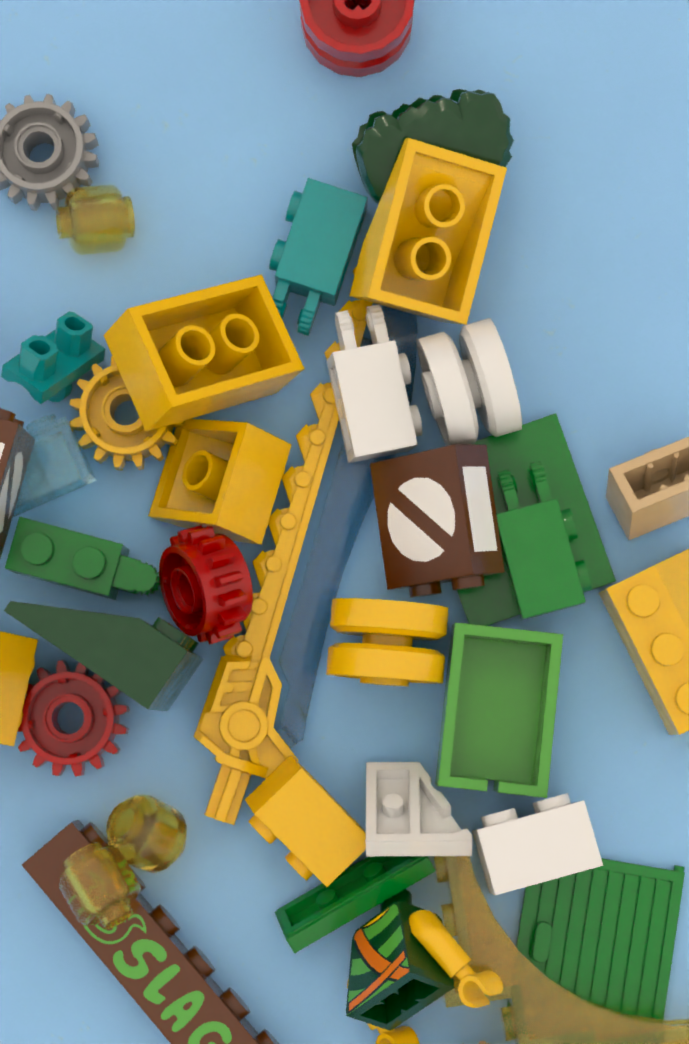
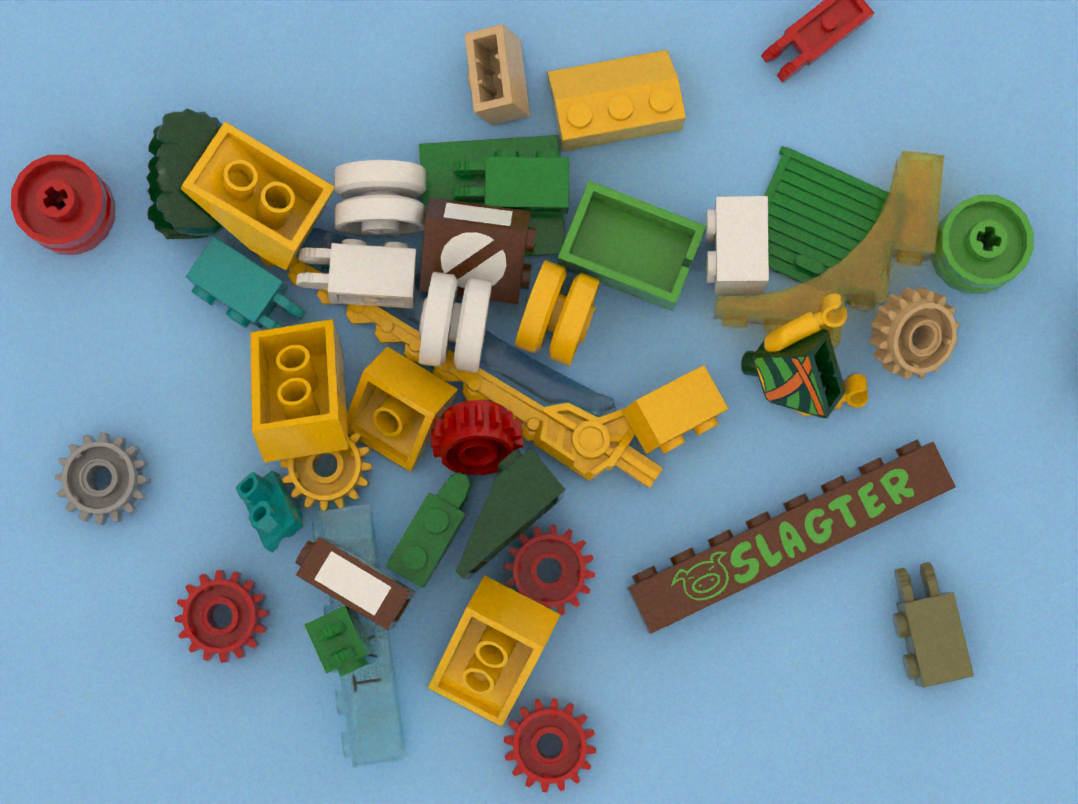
camera: 75 degrees left, 0 degrees up
(96, 219) = (168, 450): clear yellow head -> none
(99, 885) = (683, 575): clear yellow head -> none
(147, 832) = (652, 534): clear yellow head -> none
(337, 510) = (449, 321): none -> white wheel
(348, 896) = (737, 389): green tile -> none
(409, 814) = (690, 333): white wing -> none

